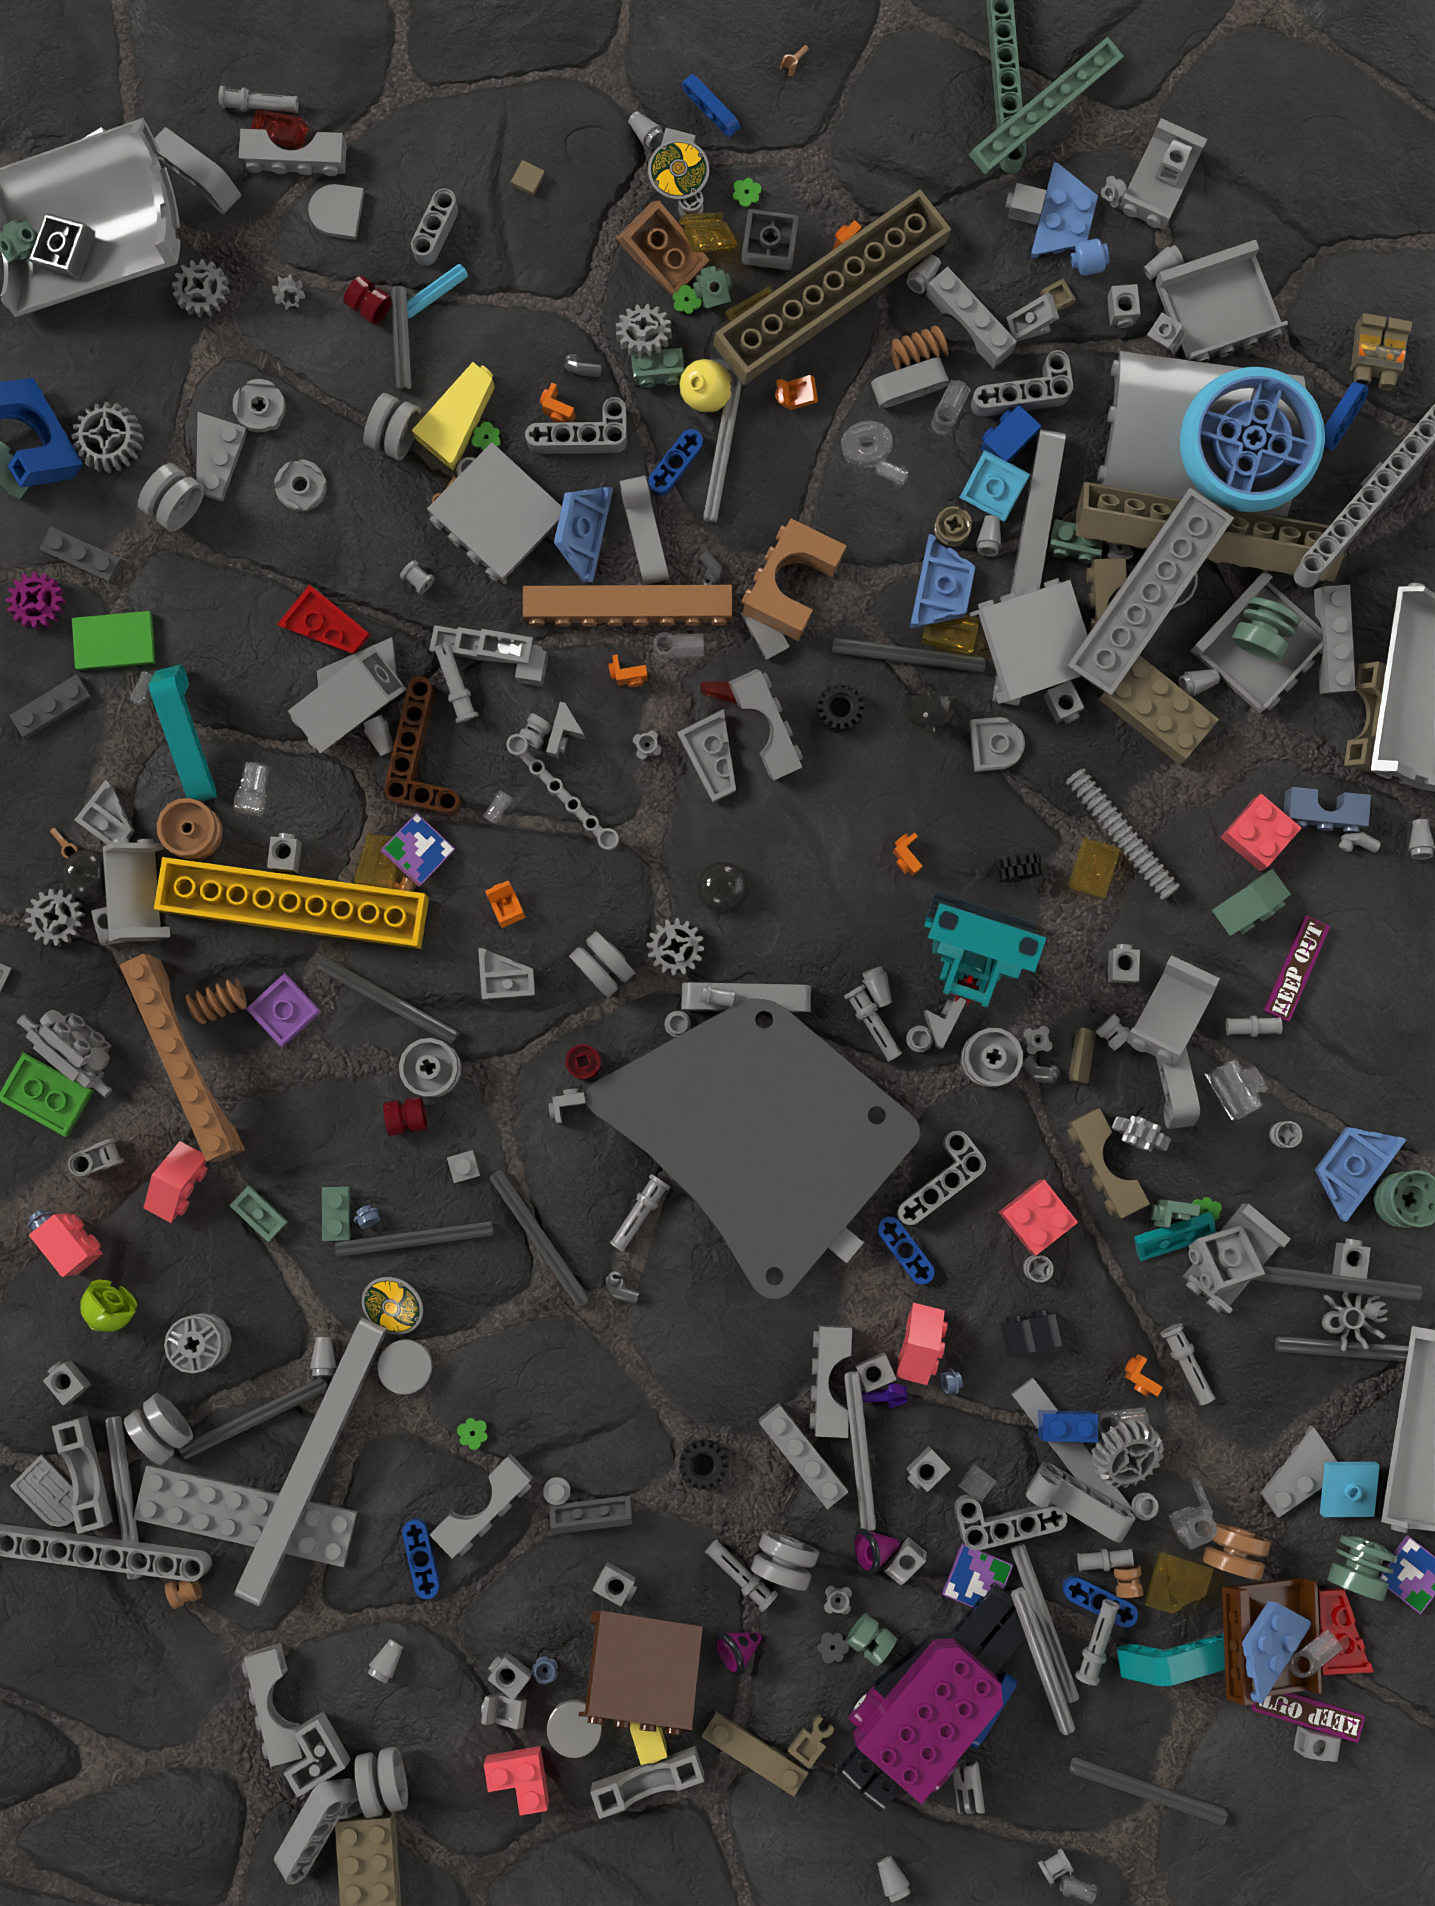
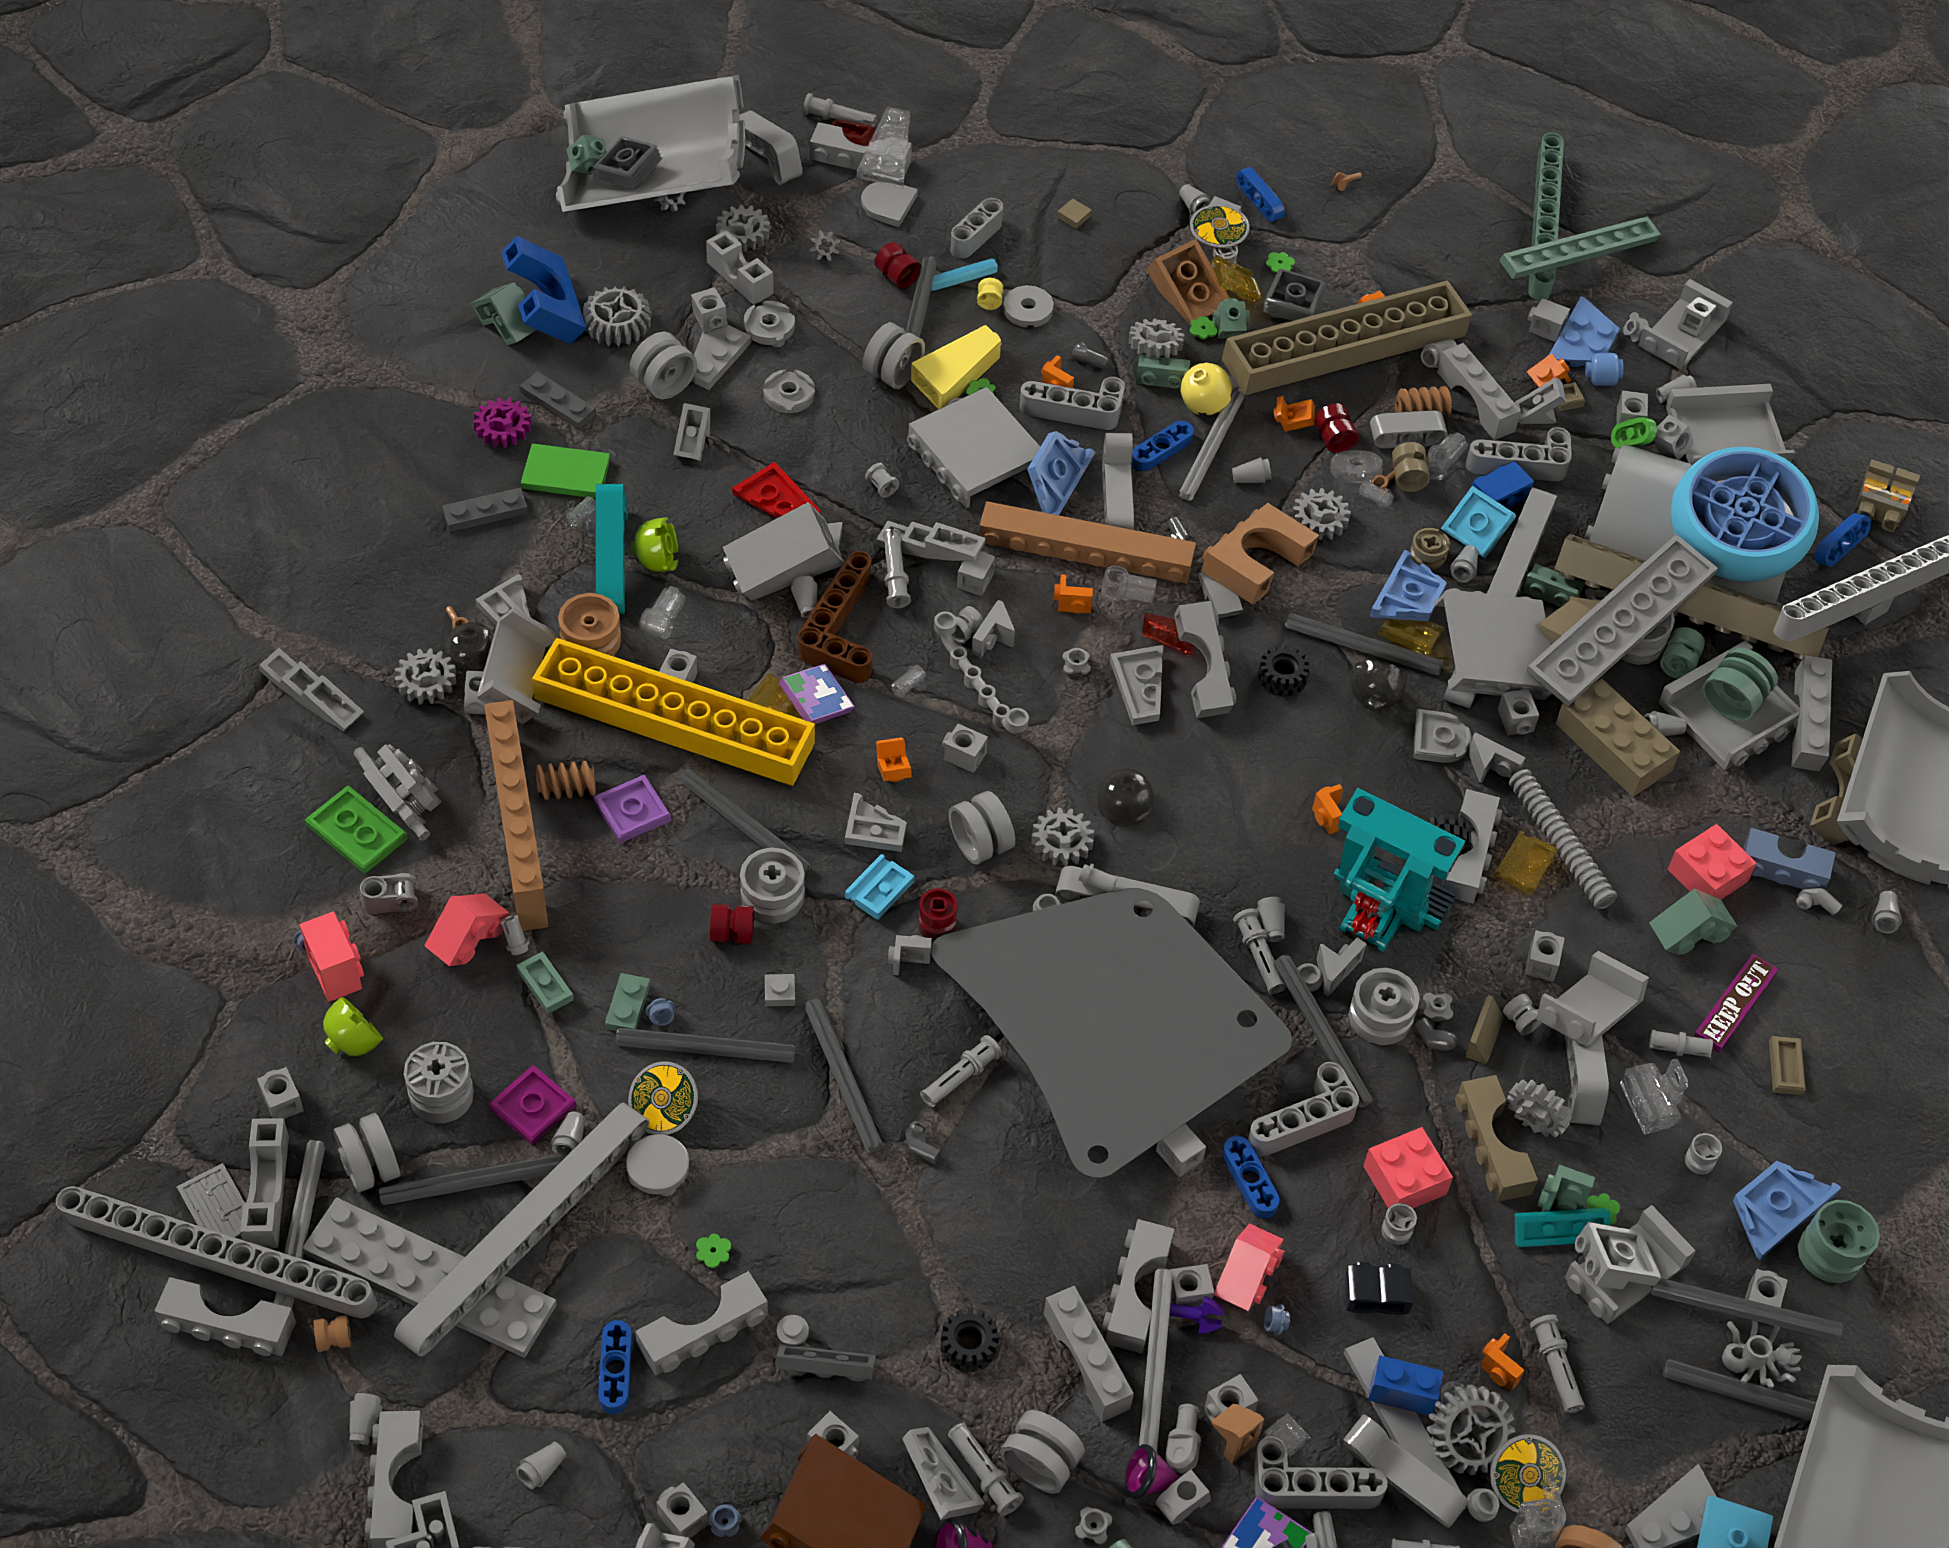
camera: 10 degrees right, 30 degrees down
(58, 1599) = (262, 1328): none -> light grey arch
(189, 405) = (709, 309): none -> light grey brick
(204, 342) = (751, 279): none -> light grey arch
(221, 570) = (692, 431): none -> light grey slope
(222, 1179) = (515, 937): none -> light grey pin
(224, 718) = (655, 545): none -> lime cylinder
(232, 1655) = (363, 1415): none -> light grey cone
(283, 1333) = (532, 1105): none -> magenta tile
(320, 159) = (887, 150): none -> clear wing
(467, 312) = (990, 293): none -> light yellow wheel
(508, 301) = (1030, 296): none -> light grey tile
(524, 1040) = (879, 887): none -> medium azure plate
(574, 880) = (965, 748): none -> light grey brick
(708, 1594) = (942, 1478): none -> light grey wing
(768, 475) = (1252, 472): none -> light grey cone
(841, 405) = (1336, 428): none -> dark red wheel
(853, 514) = (1322, 513): none -> light grey gear
(896, 1515) = (1184, 1442): none -> light grey arm
(897, 449) = (1382, 480): none -> medium nougat hand
(918, 429) = (1410, 466): none -> dark tan wheel
(938, 1500) = (1240, 1430): none -> medium nougat slope
(941, 1092) = (1320, 1025): none -> dark grey axle
(1036, 273) = (1549, 369): none -> orange bracket
(1041, 758) = (1490, 755): none -> light grey slope
(1044, 831) = (1481, 814): none -> light grey arch
(1095, 598) = (1562, 620): none -> dark tan slope
(1129, 337) = (1634, 432): none -> bright green plate
(1173, 1471) = (1522, 1468): none -> shield
(1206, 598) = (1682, 652): none -> sand green wheel
(1347, 1021) = (1787, 1065): none -> dark tan tile

